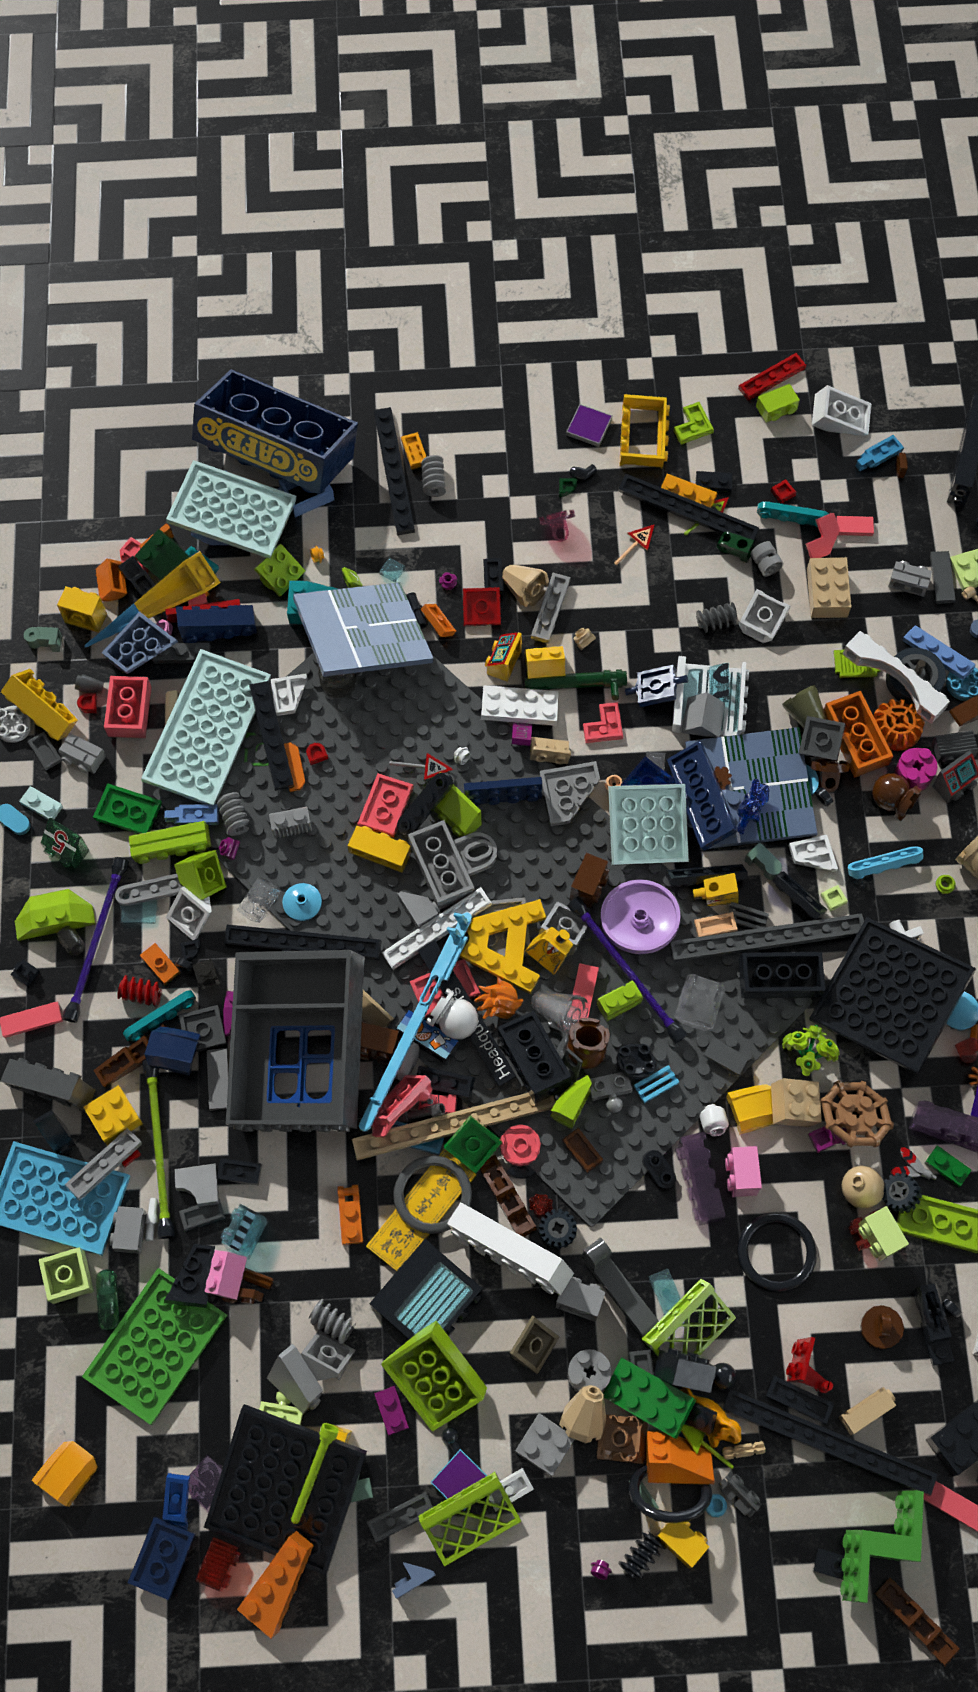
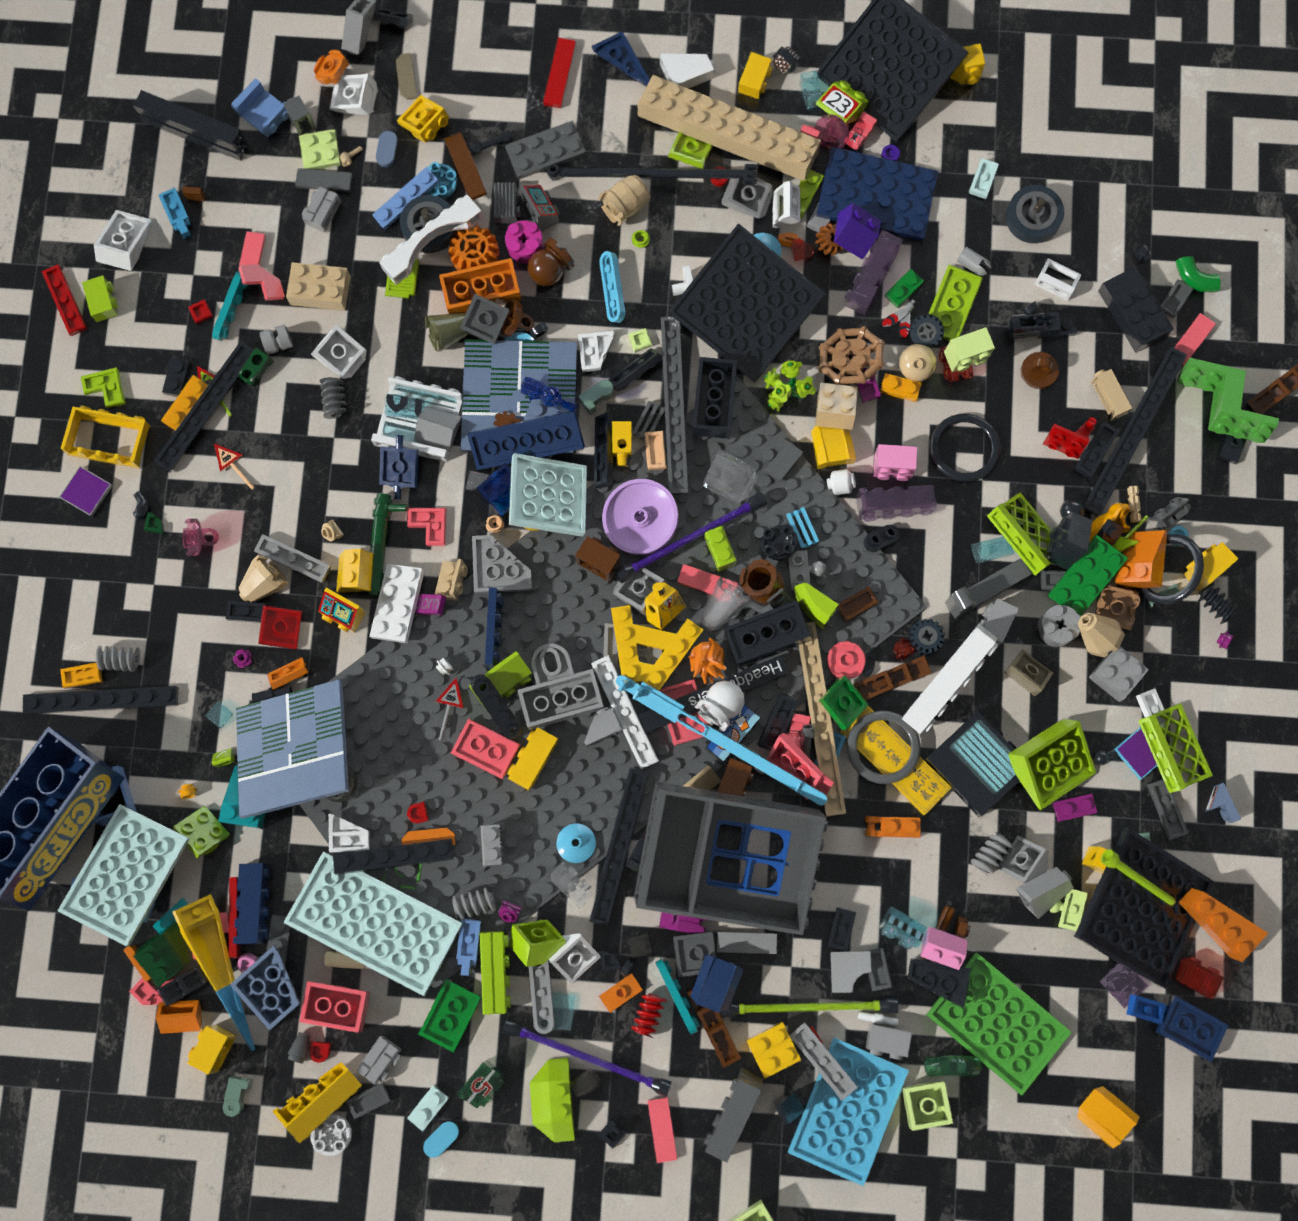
camera: 80 degrees left, 10 degrees up
(832, 1174) = (900, 387): none -> light orange plate

